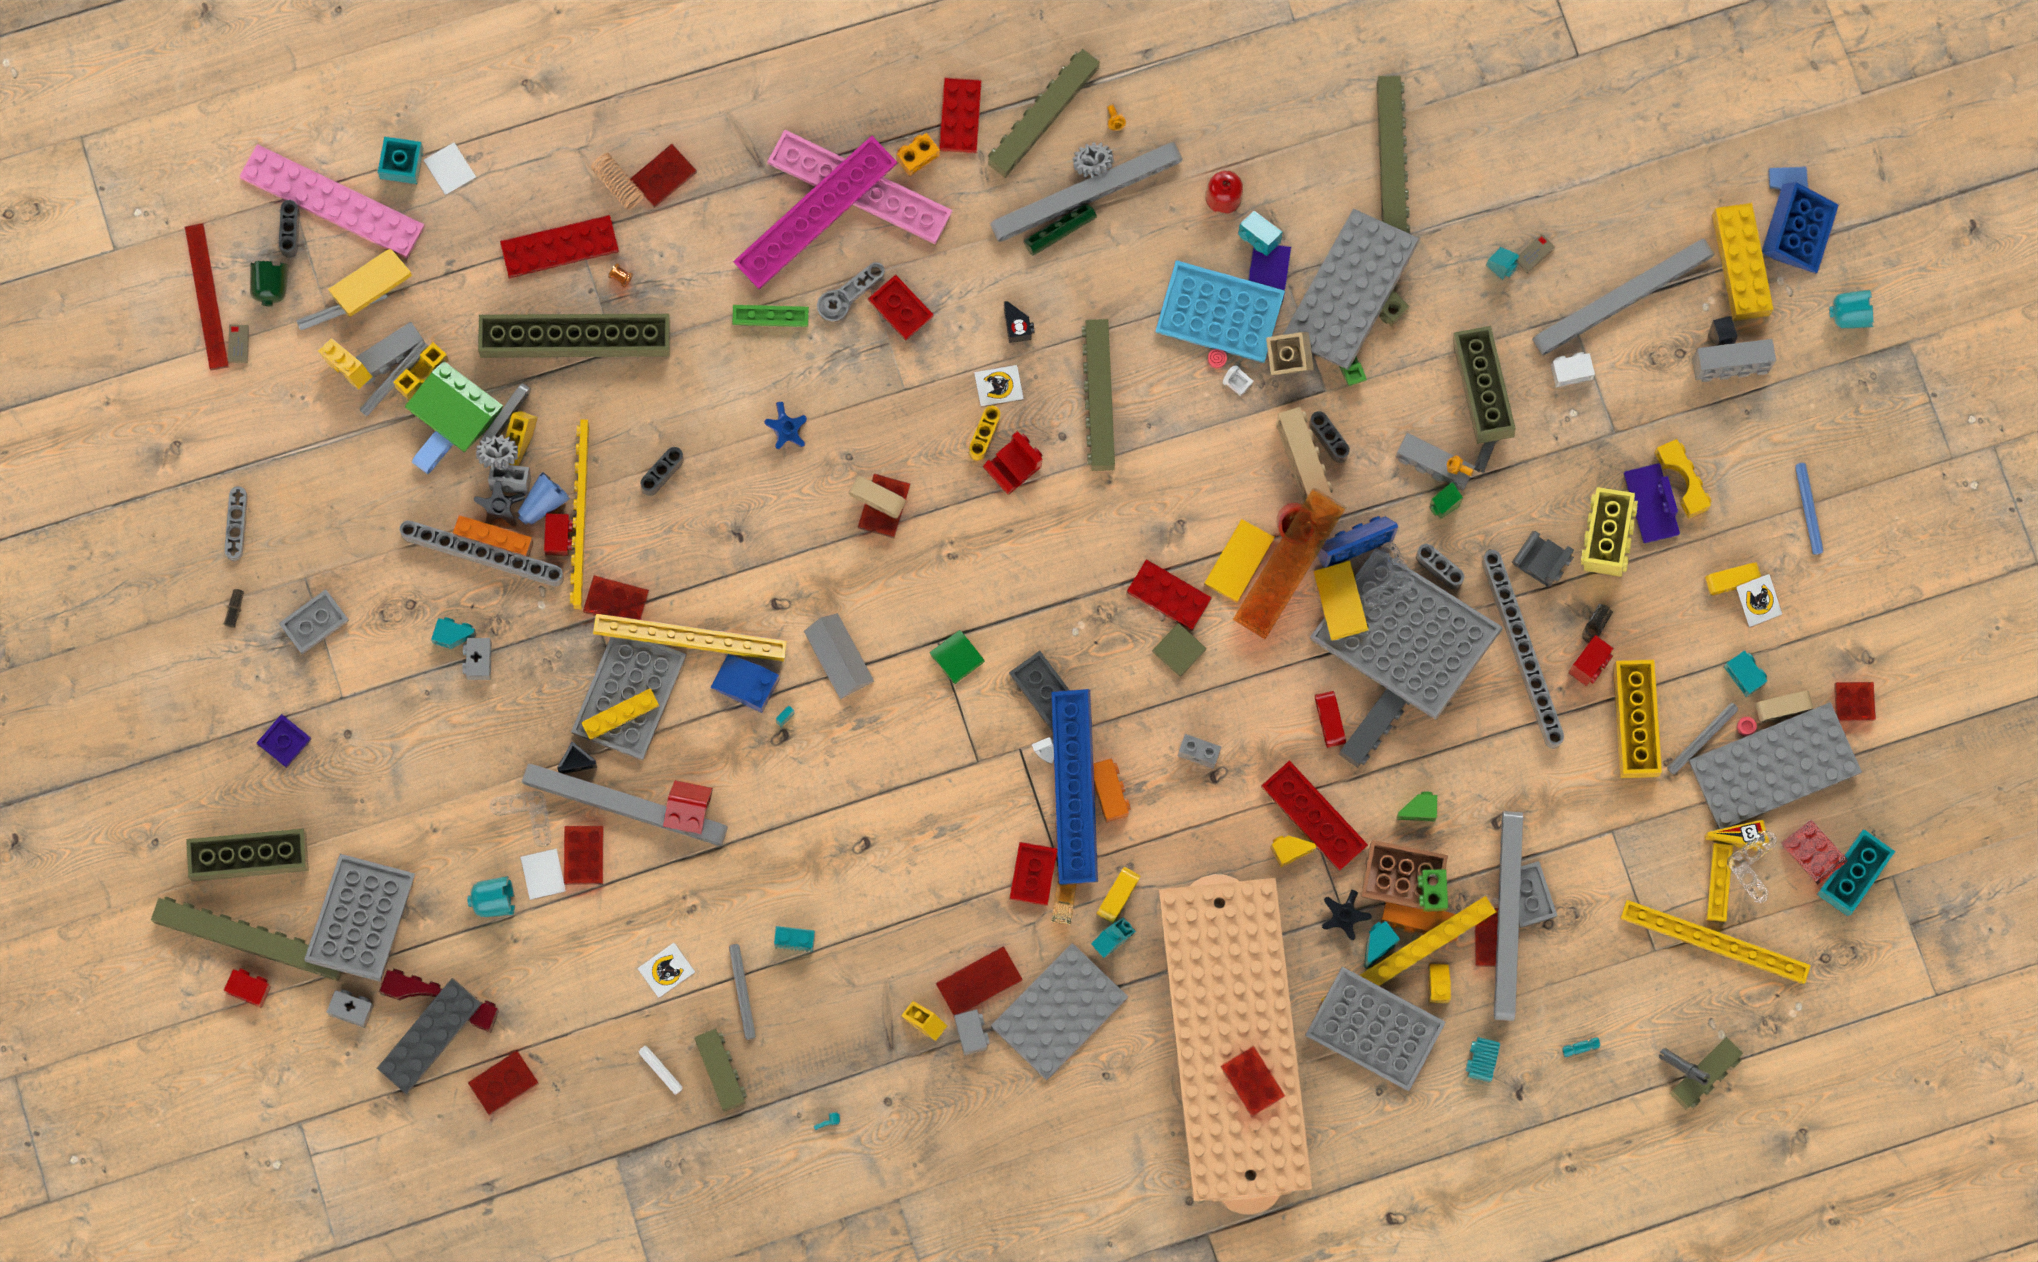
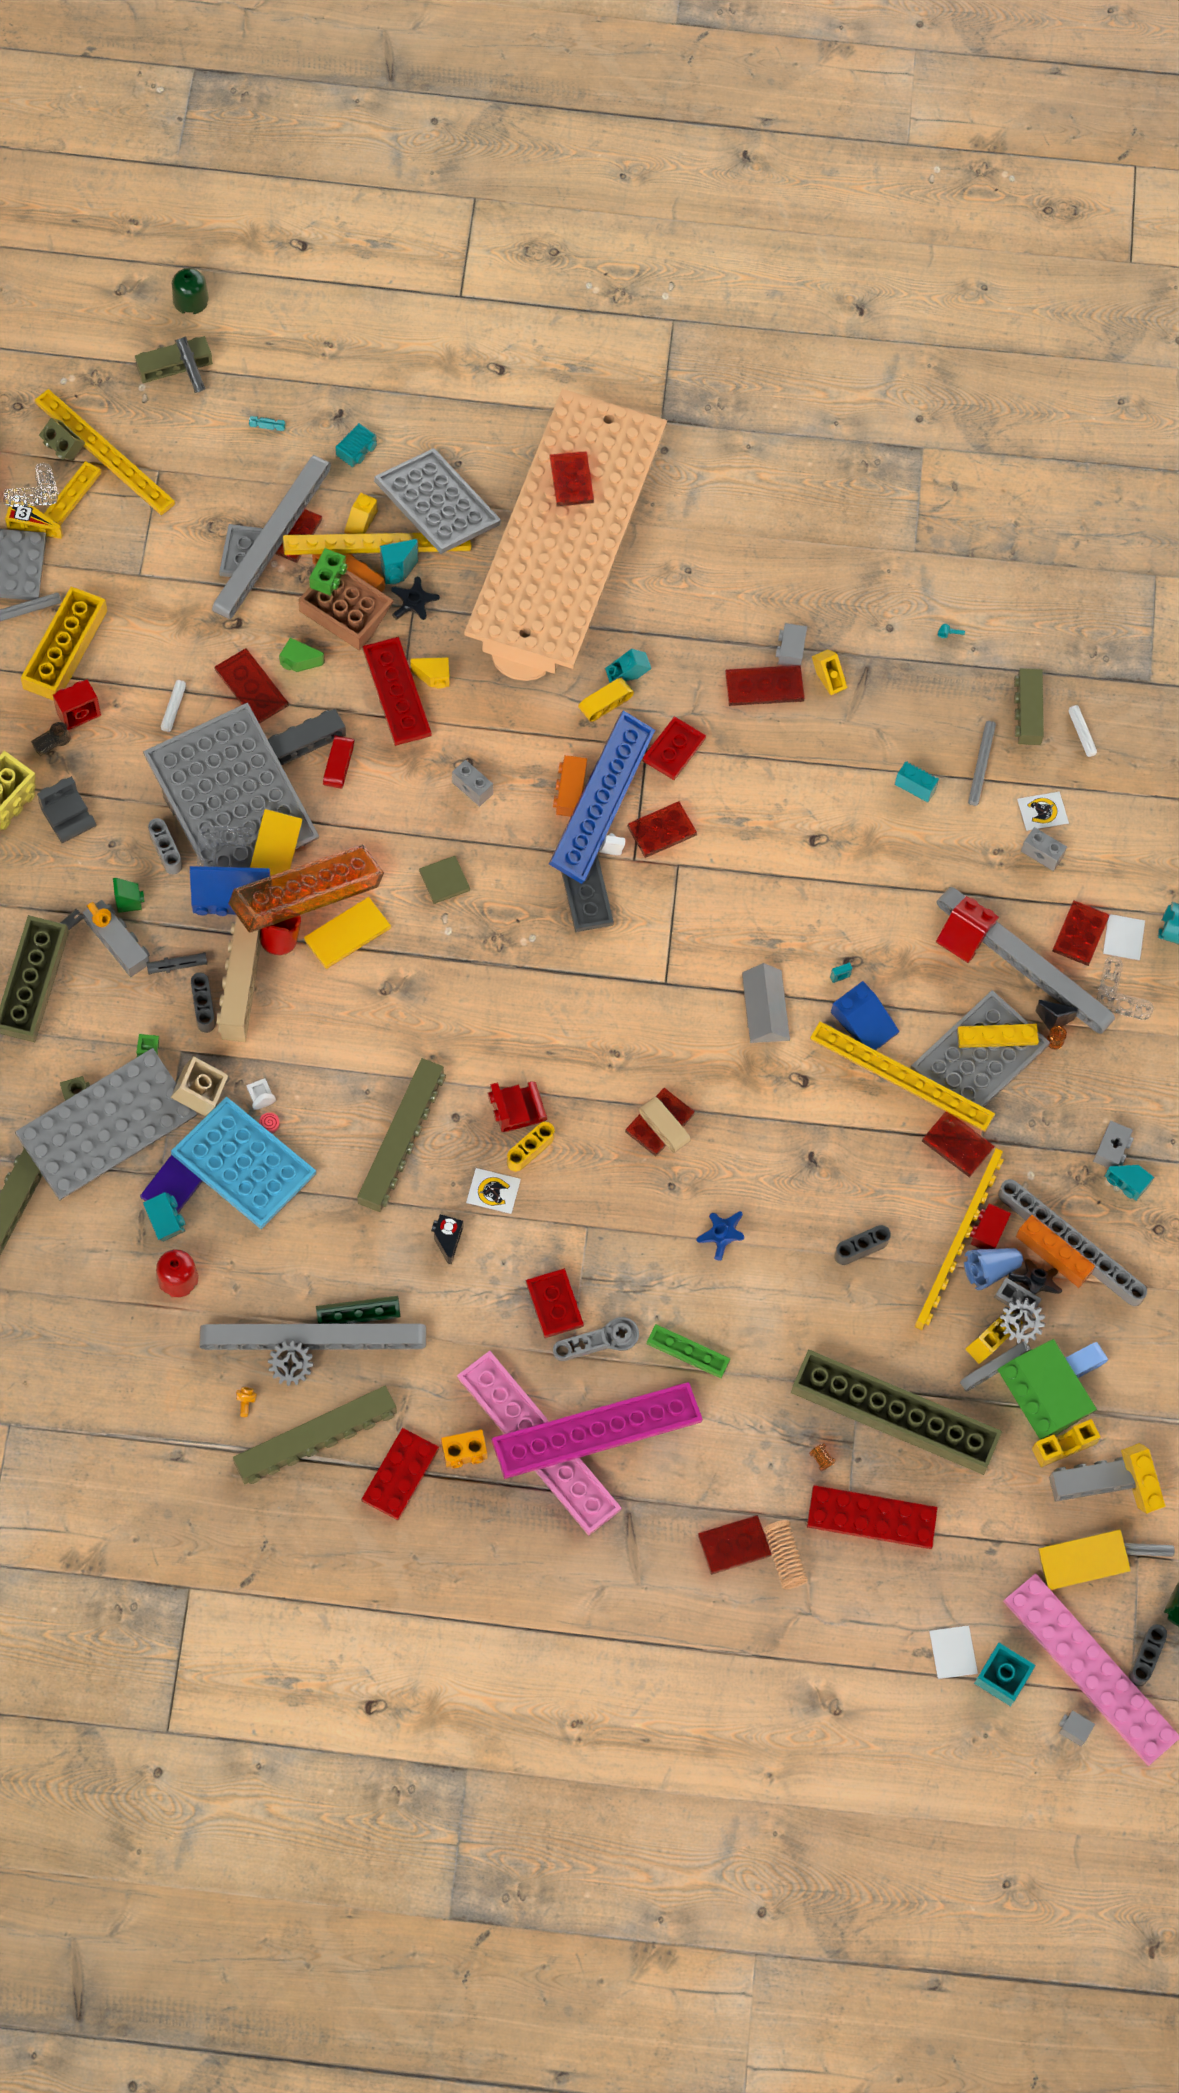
camera: 155 degrees left, 10 degrees down
(327, 146) = (1076, 1728): none -> light grey brick
(388, 384) = (1095, 1449): light grey axle -> none
(565, 734) = (1056, 1037): none -> clear orange bush
(649, 923) = (1043, 849): none -> light grey brick
(957, 657) = (655, 958): green slope -> none
(1007, 786) = (662, 829): none -> clear red plate
(1059, 1011) = (704, 633): light grey plate -> none
(1064, 903) = (659, 711): clear yellow slope -> none
(1169, 594) = (428, 931): red plate -> none
(1374, 461) = (176, 963): none -> dark grey pin
(1448, 761) = (251, 685): none -> clear red tile
(1508, 709) = (173, 705): none -> white axle
(1522, 658) = (127, 754): light grey beam -> none
(1724, 1158) = (189, 291): none -> dark green cylinder
(1760, 932) = (63, 437): none -> olive brick

